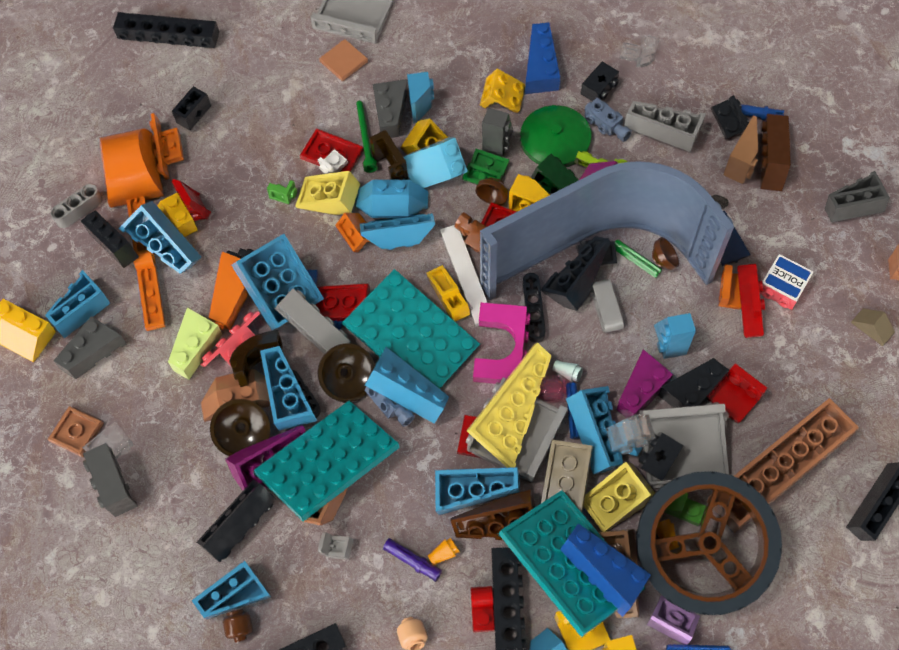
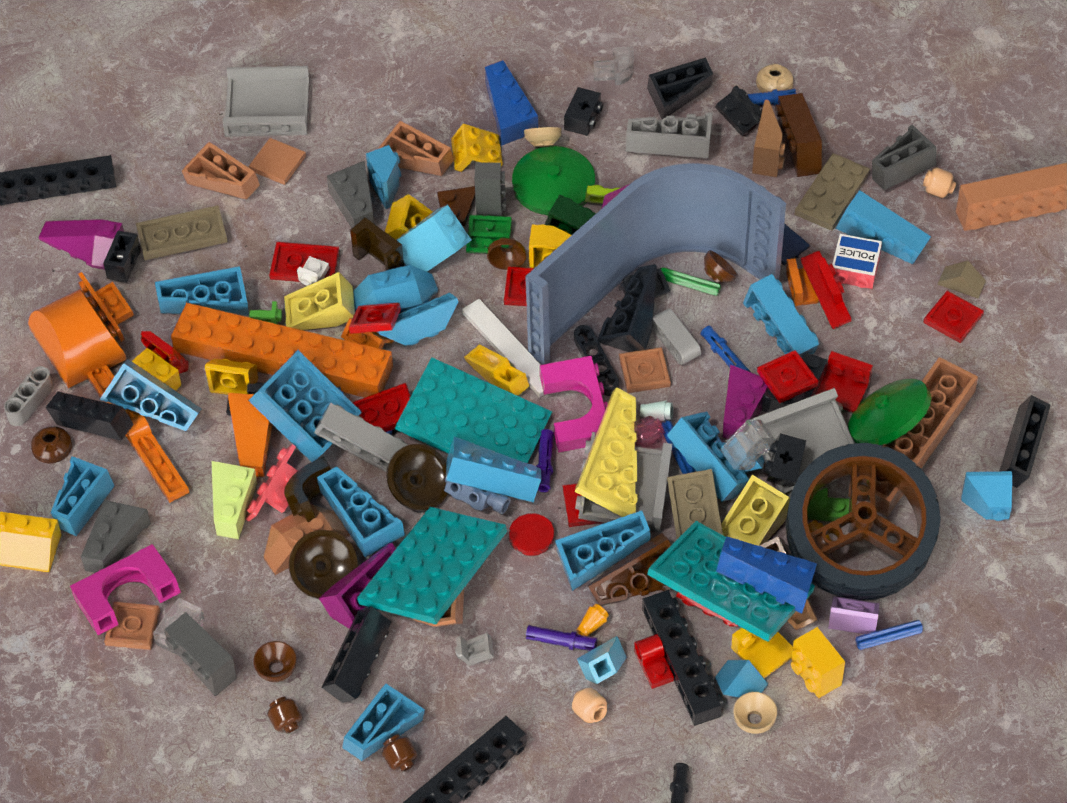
camera: 20 degrees left, 10 degrees down
(53, 395) = (142, 566): none -> dark pink arch
(83, 256) = (51, 451): none -> reddish brown piece
(159, 556) = (284, 715): none -> reddish brown head
(165, 496) = (272, 653): none -> reddish brown piece
(169, 83) = (82, 238): none -> magenta wedge
(233, 234) = (230, 376): none -> yellow slope
(244, 158) = (214, 289): none -> dark azure wedge
(246, 100) = (181, 232): none -> dark tan plate
(272, 217) = (229, 336): none -> orange brick
(293, 58) = (220, 173): none -> nougat wedge
(362, 219) = (375, 318): none -> red tile
(369, 162) = (354, 262): green piece -> none
(423, 451) = (531, 534): none -> red tile
(439, 595) = (602, 661): none -> medium azure slope
(453, 81) = (418, 150): none -> nougat wedge
(455, 393) = (545, 459): none -> dark purple pin
(468, 136) = (459, 201): none -> reddish brown wing
(470, 230) = (508, 303): dark orange plate -> none
(558, 96) = (543, 136): none -> tan piece
(571, 328) = (644, 370): none -> nougat tile
(606, 119) = (604, 148): sand blue brick -> none
(643, 331) = (710, 336): none -> blue pin
(675, 335) = (758, 339): dark azure wedge -> none
(687, 81) = (679, 85): none -> black wedge
(688, 377) = (787, 376): none -> red tile
(699, 302) = (780, 316): none -> dark azure wedge
(762, 98) = (767, 82): none -> tan piece
(768, 438) = (890, 412): none -> green dish
(785, 211) = (832, 191): none -> dark tan plate
(813, 252) = (874, 221): none -> dark azure wedge
(833, 545) = (988, 494): none -> dark azure slope
(855, 357) = (953, 316): none -> red tile
(882, 229) = (939, 182): none -> light nougat head

